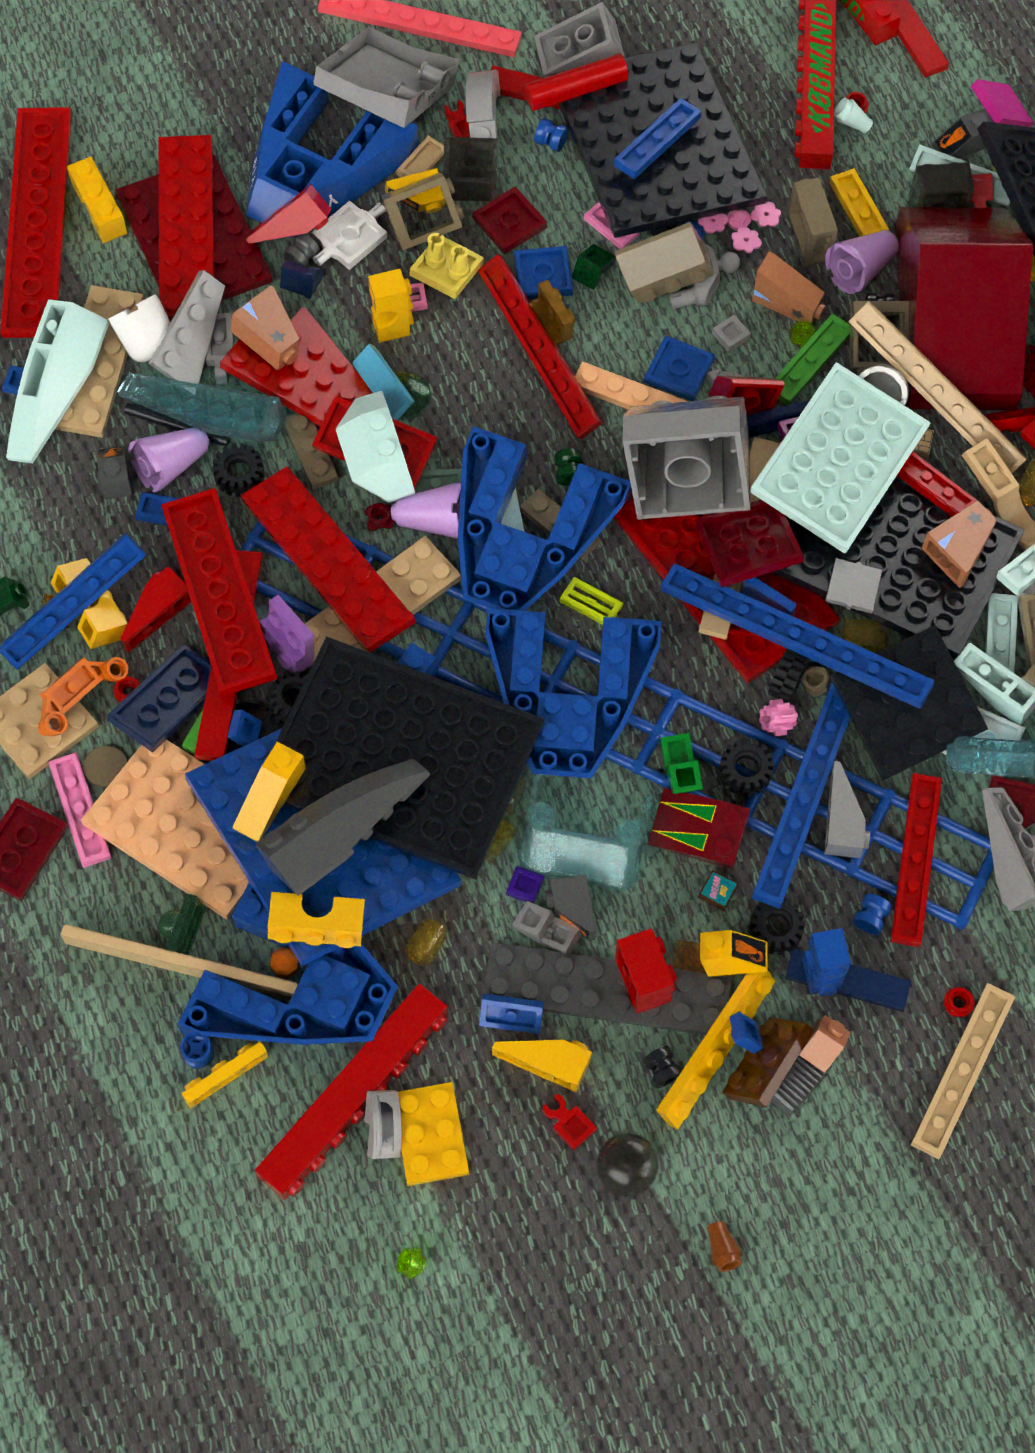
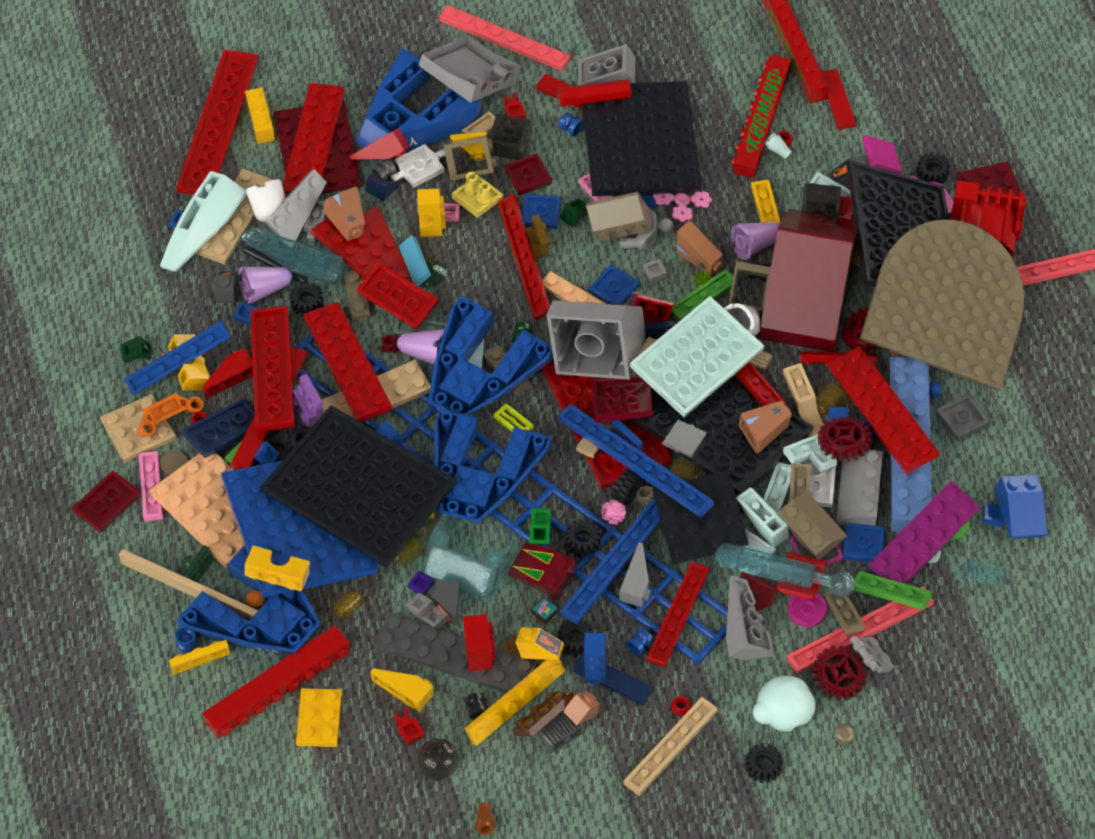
camera: 15 degrees right, 10 degrees down
(269, 791) = (269, 488): yellow slope -> none
(329, 828) = (296, 516): dark grey wedge -> none
(374, 449) = (394, 299): light aqua wedge -> none
(384, 1118) = (291, 702): light grey slope -> none
(410, 1262) = (285, 788): clear neon green plate -> none
(481, 96) = (526, 95): light grey arch -> none
(511, 1013) = (389, 656): blue plate -> none
(657, 138) = (637, 137): blue plate -> none
(745, 1032) = (533, 692): blue plate -> none
(812, 220) = (727, 206): dark tan window -> none
(932, 383) = (775, 324): tan tile -> none

